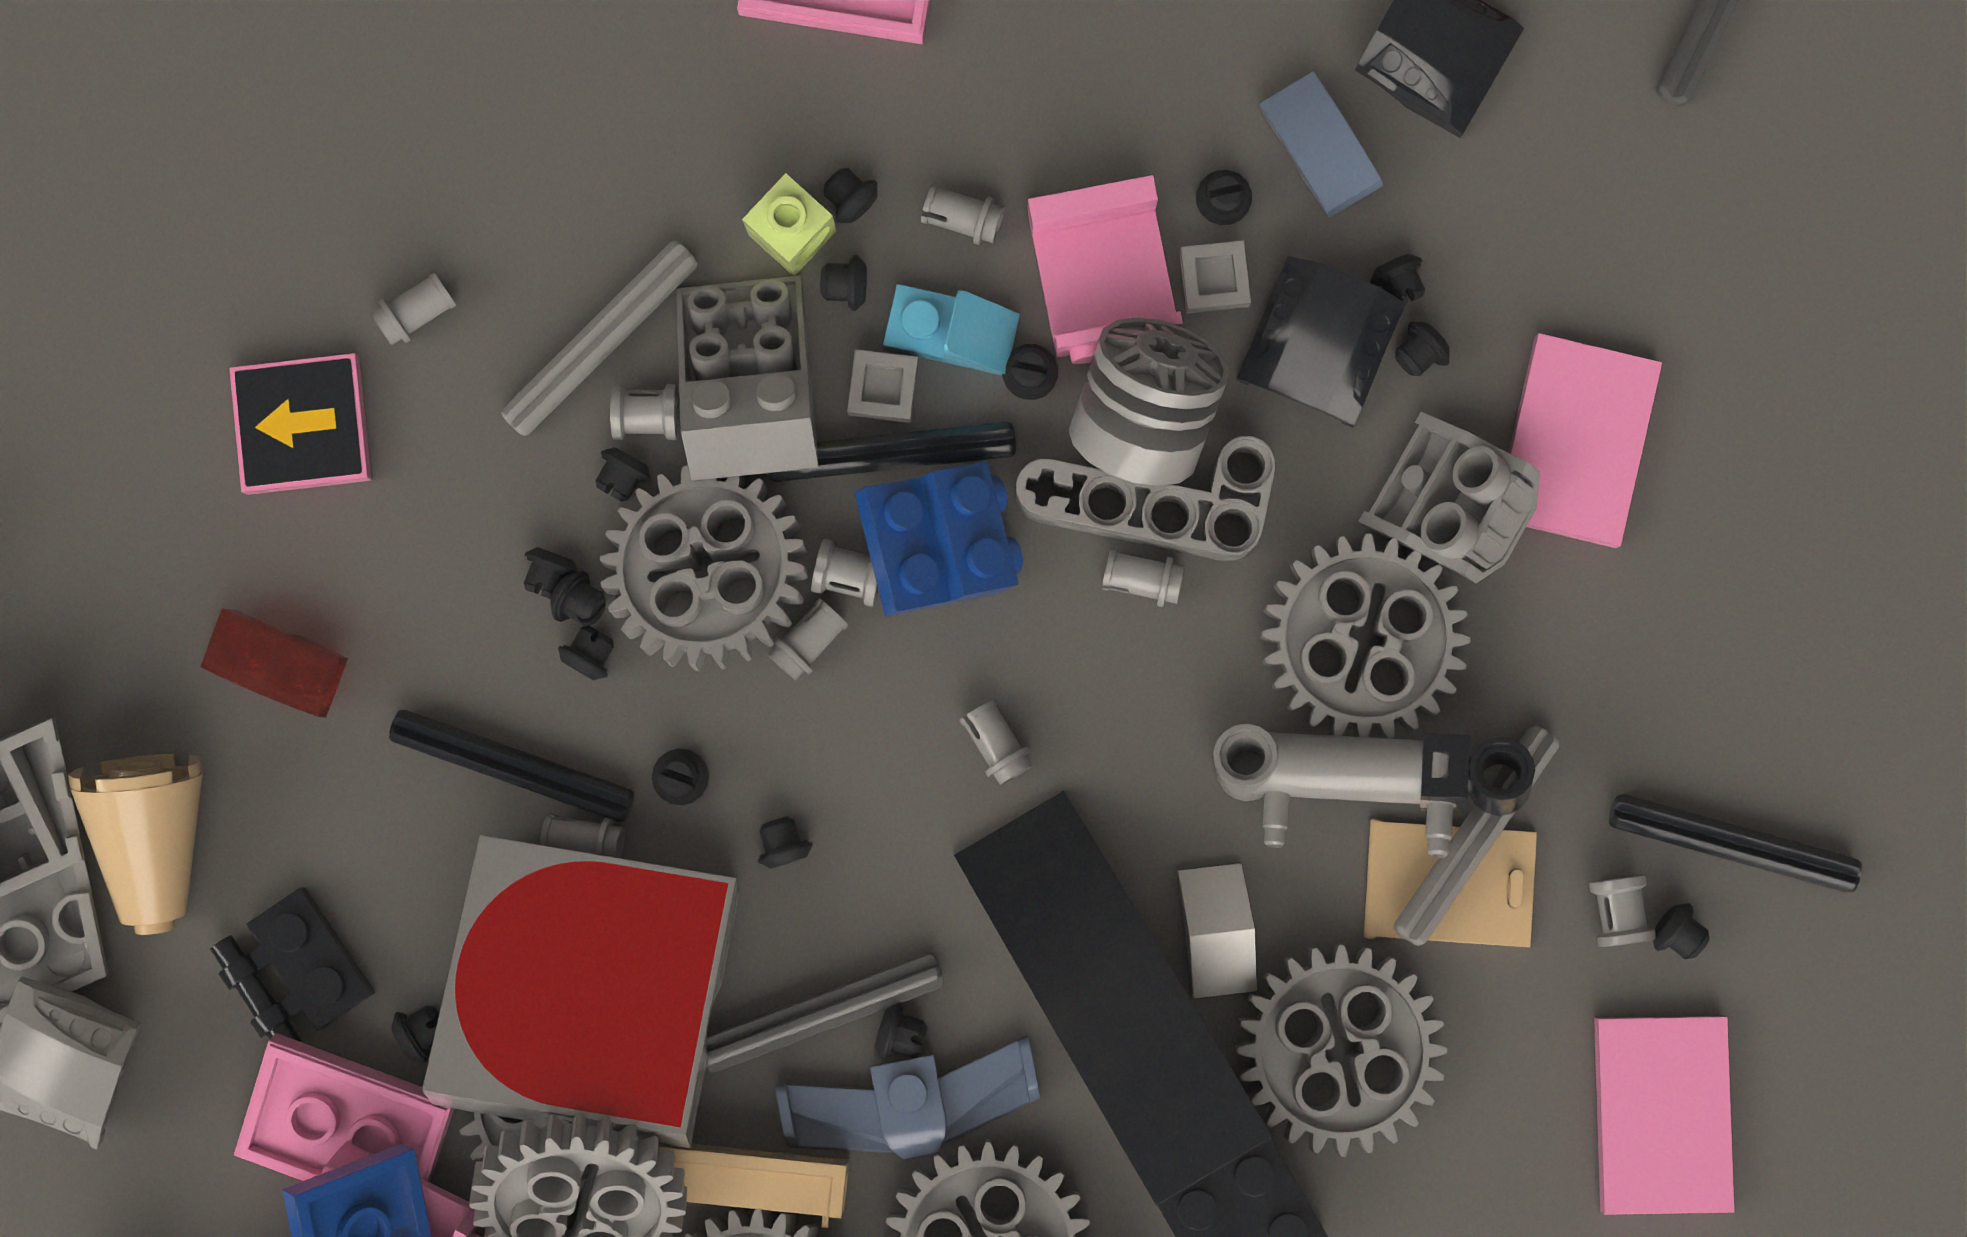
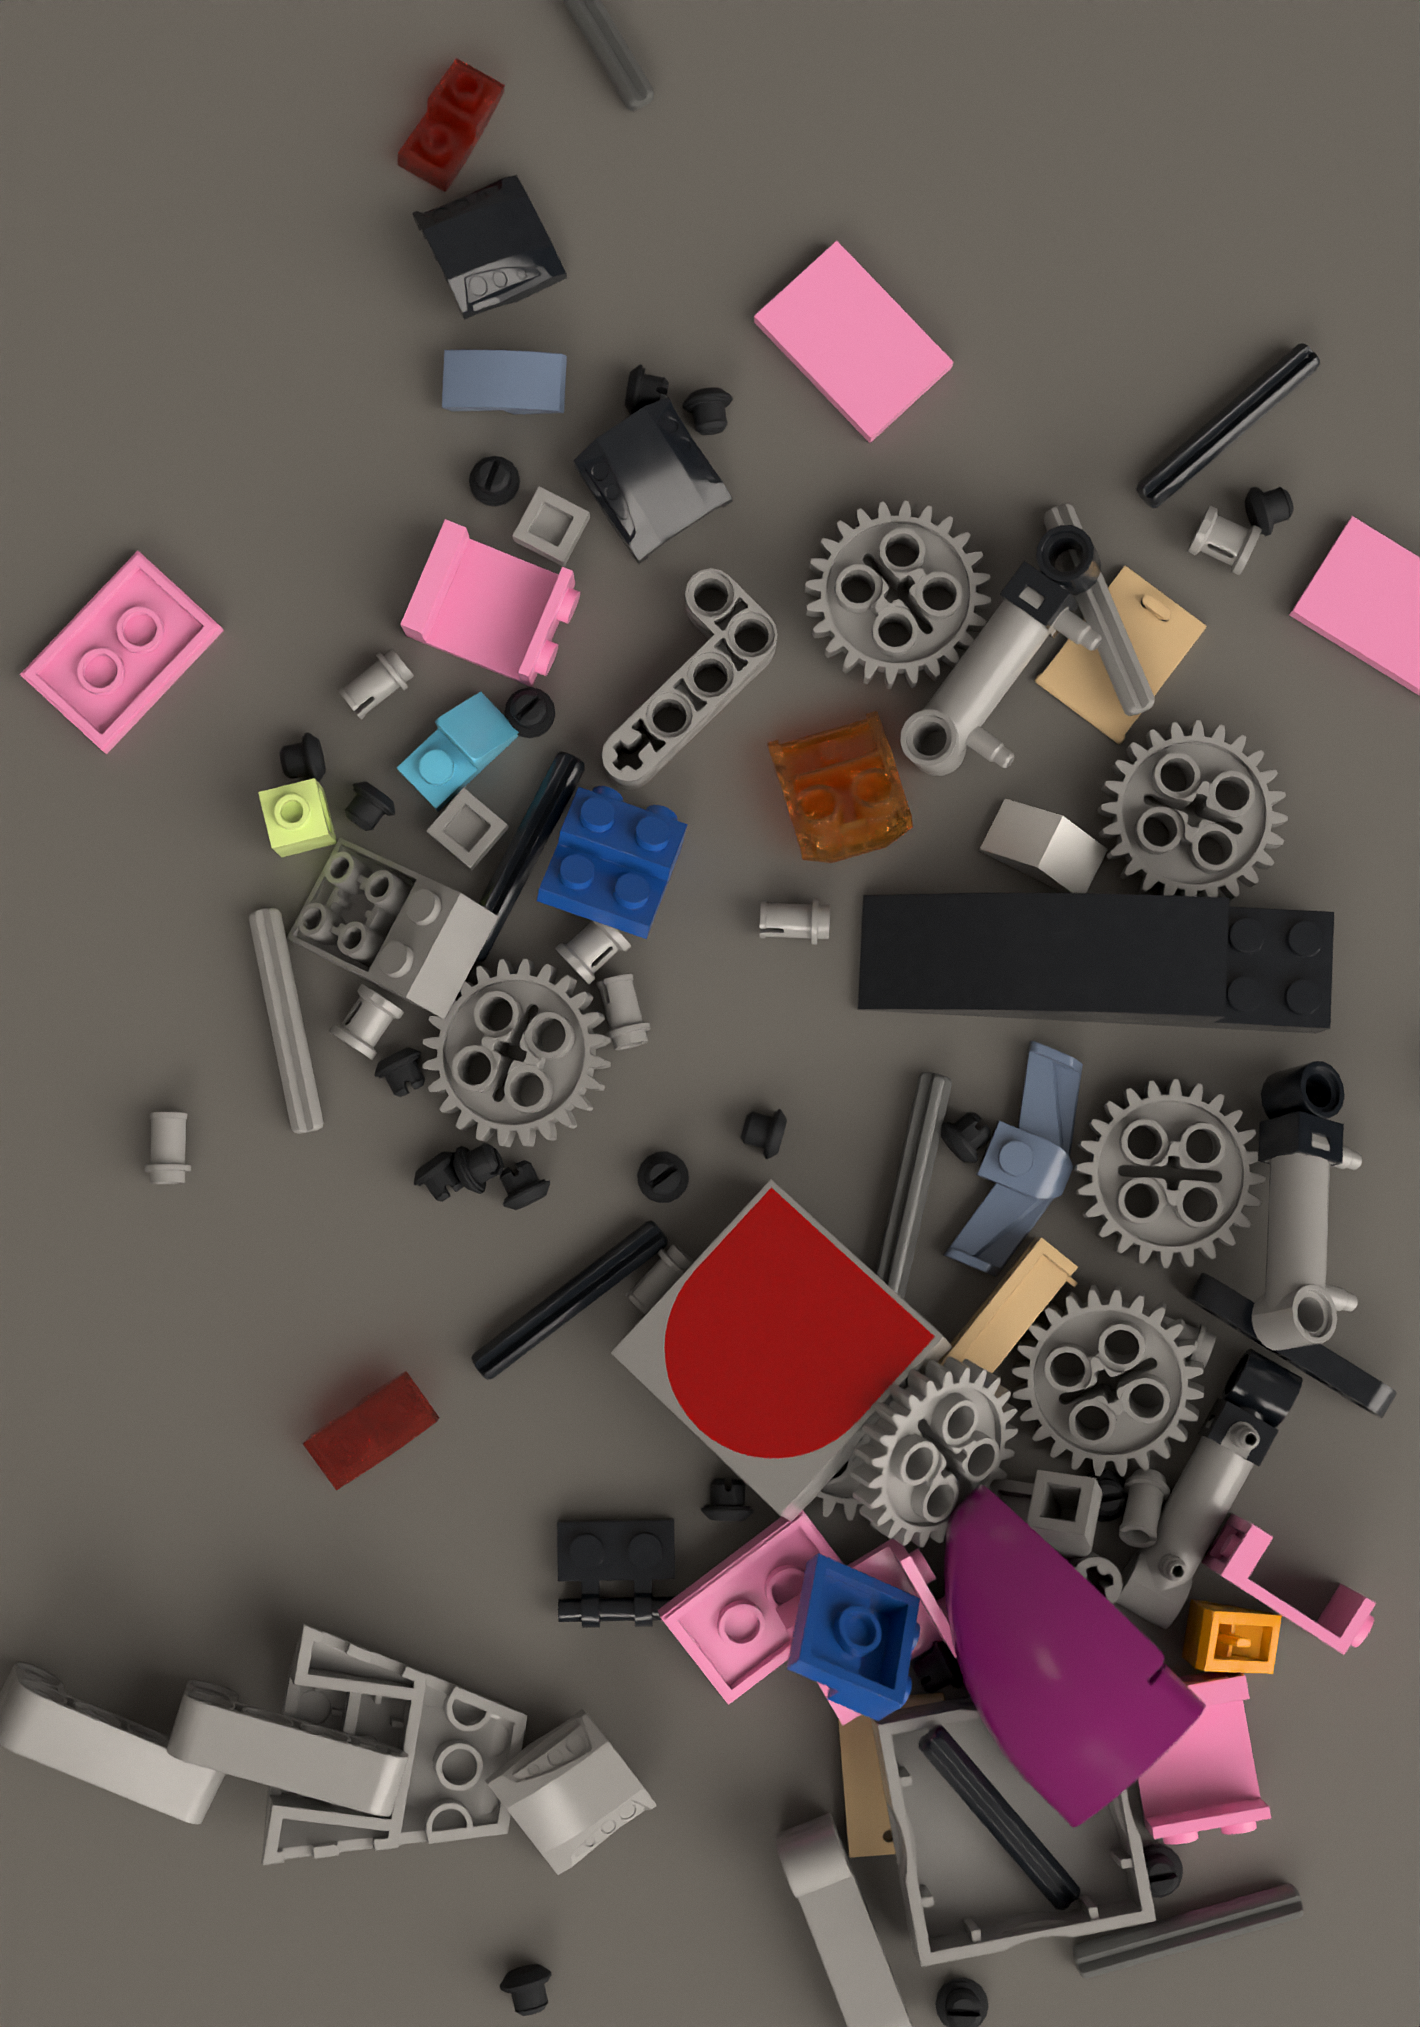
camera: 60 degrees left, 0 degrees up
(143, 834) = (437, 1614): tan cone -> none
(300, 424) = (198, 1293): black tile -> none
(1143, 577) = (743, 728): light grey pin -> none
(1145, 706) = (842, 790): none -> clear orange slope
(1148, 401) = (616, 633): light grey wheel -> none
(1456, 499) = (838, 458): light grey slope -> none

